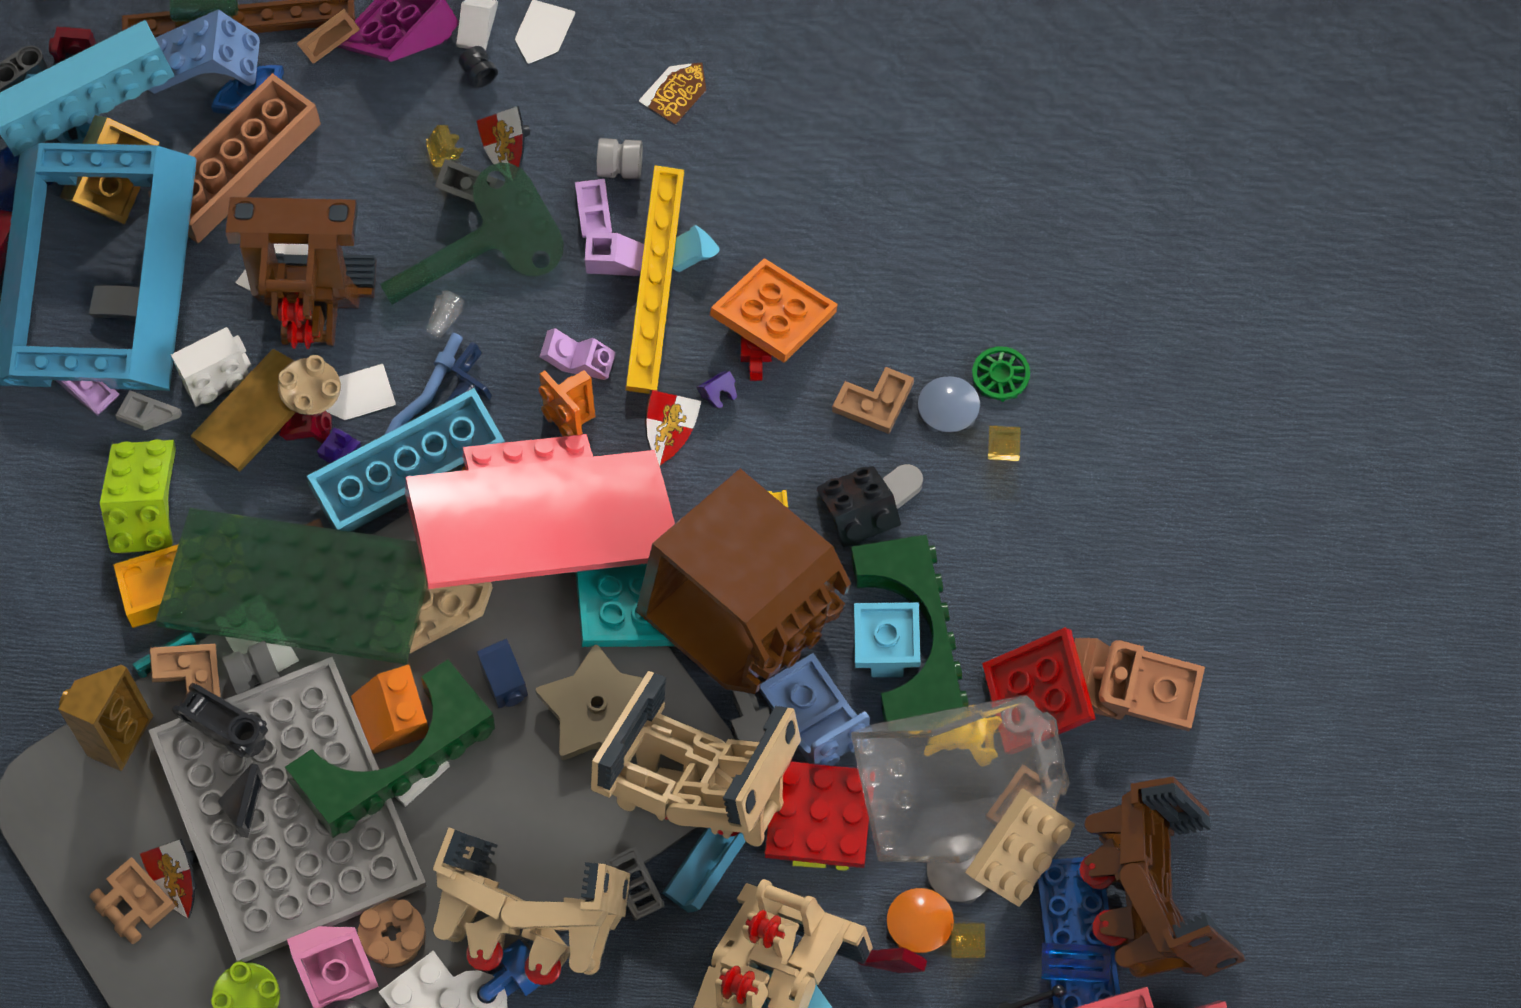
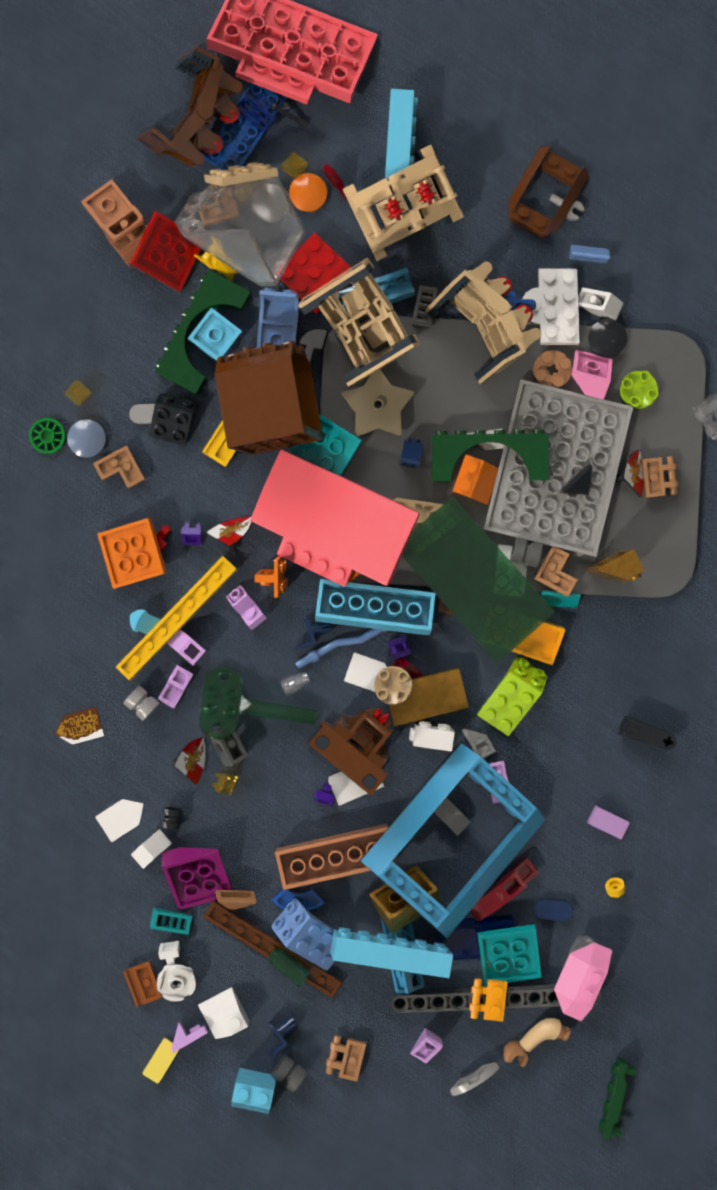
camera: 145 degrees left, 25 degrees up
(70, 41) = (367, 998): dark red bracket -> none
(222, 721) = (561, 531): black piece -> none

